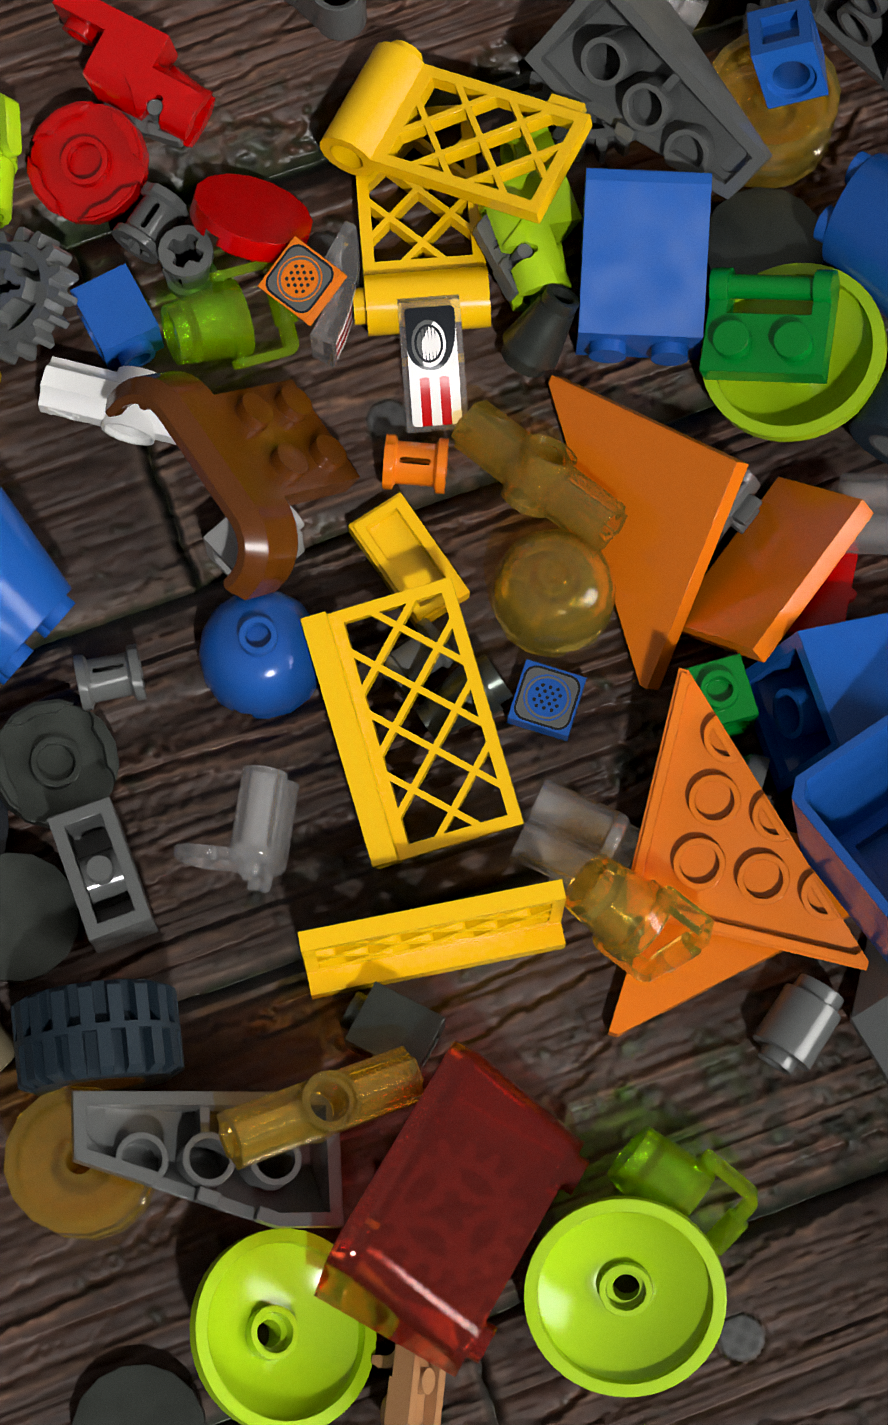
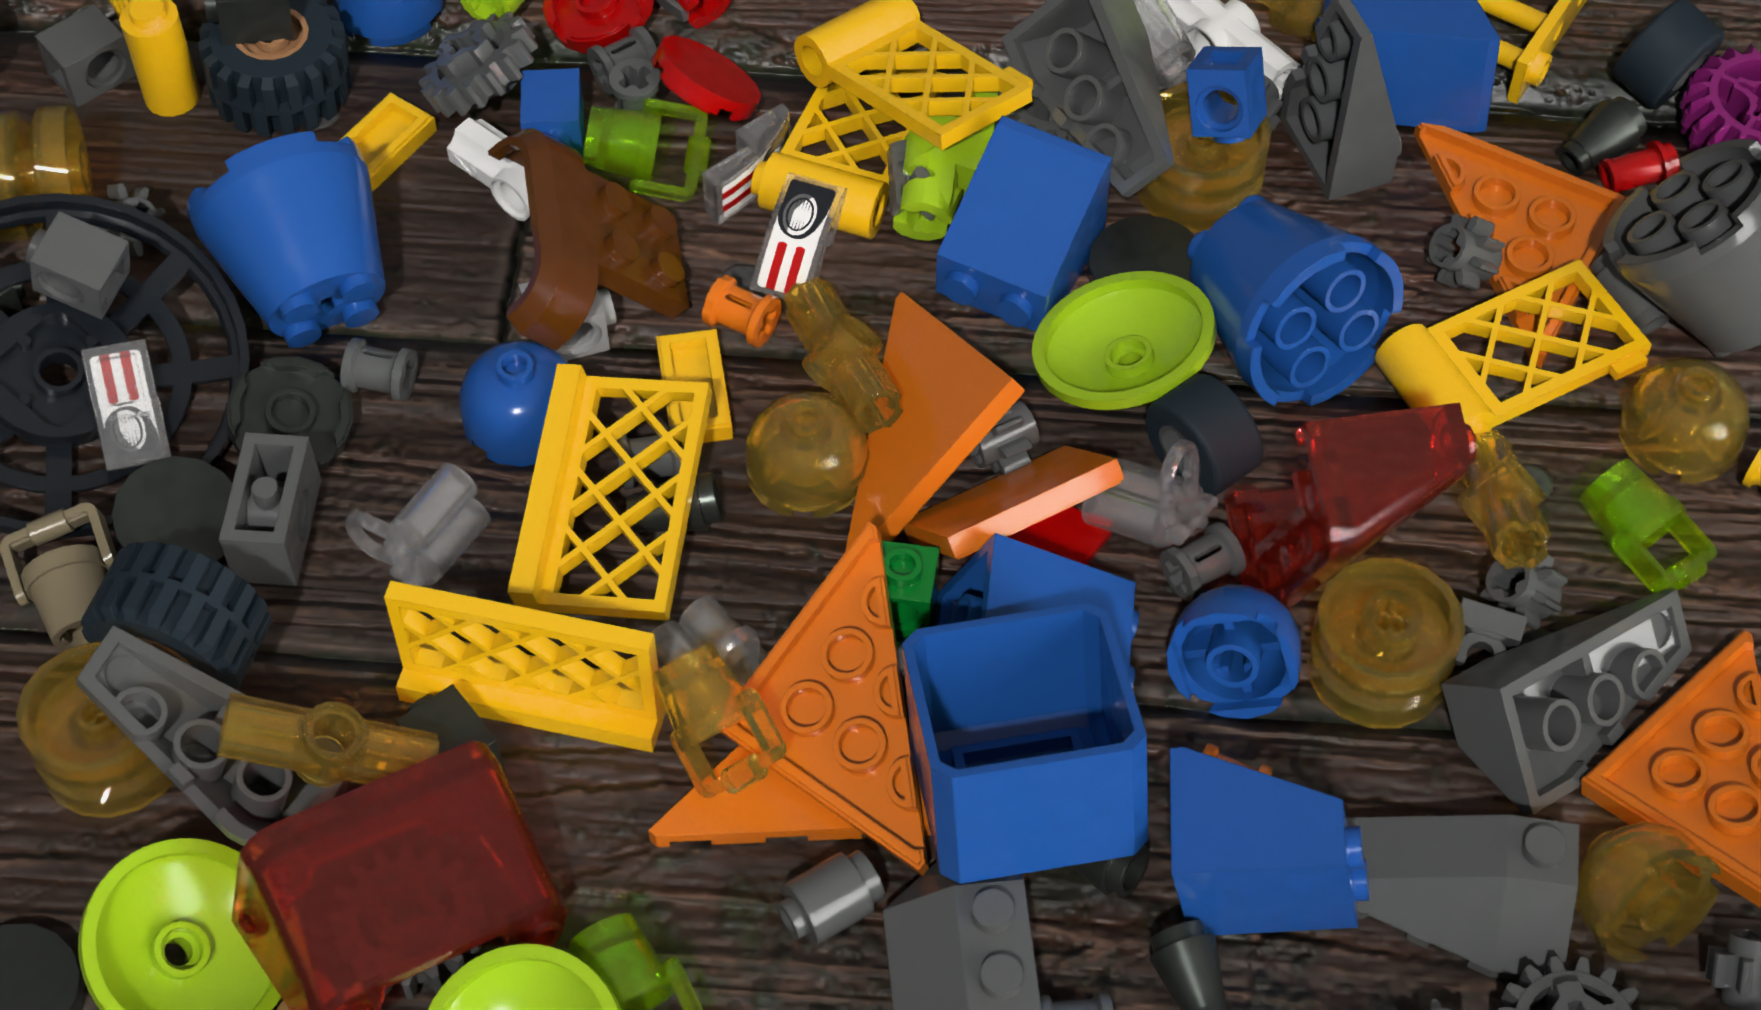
camera: 25 degrees right, 20 degrees down
(302, 281) = (717, 129): tile -> none
(540, 332) = (906, 248): pearl dark grey cone -> none
(546, 700) = (752, 540): tile -> none
(769, 345) = (1108, 323): green plate -> none

